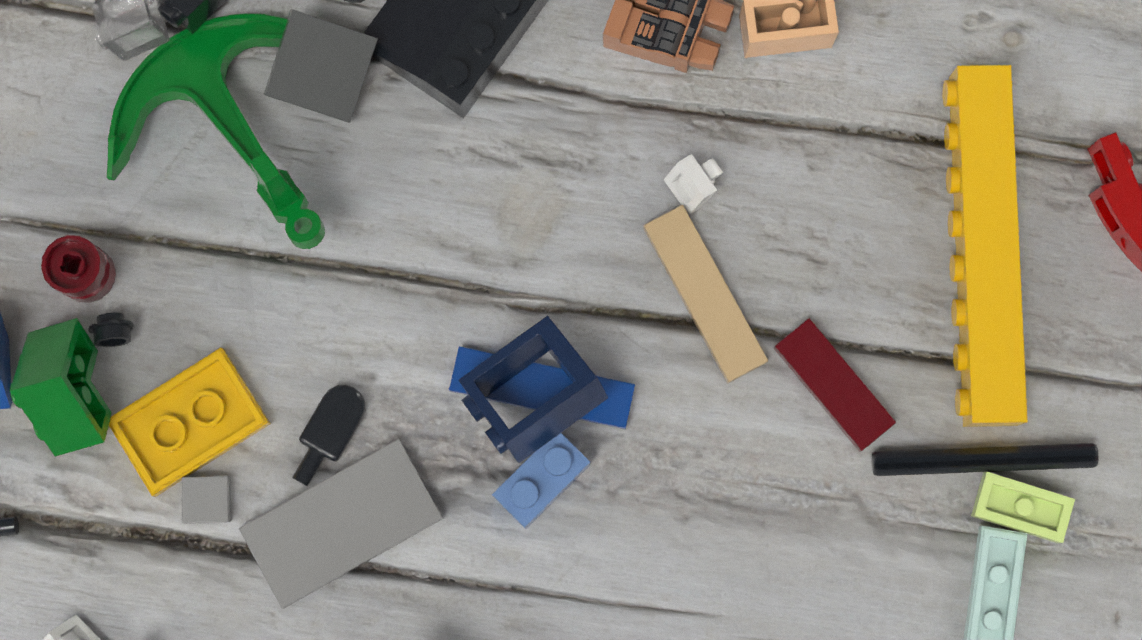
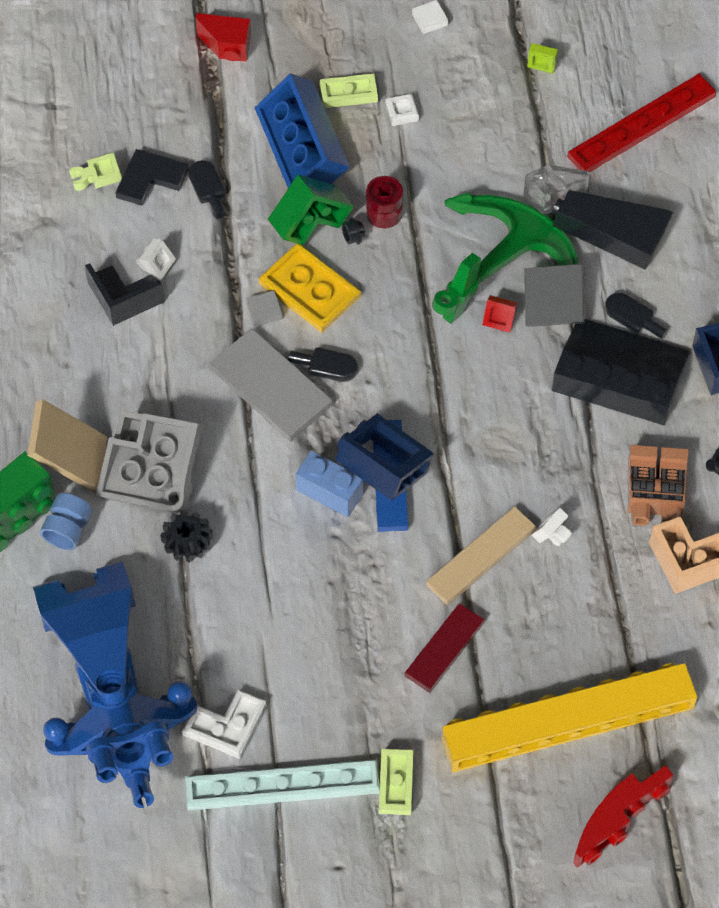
camera: 75 degrees right, 20 degrees down
(322, 153) = (500, 313): none -> red tile
(985, 459) = (422, 753): black axle -> none

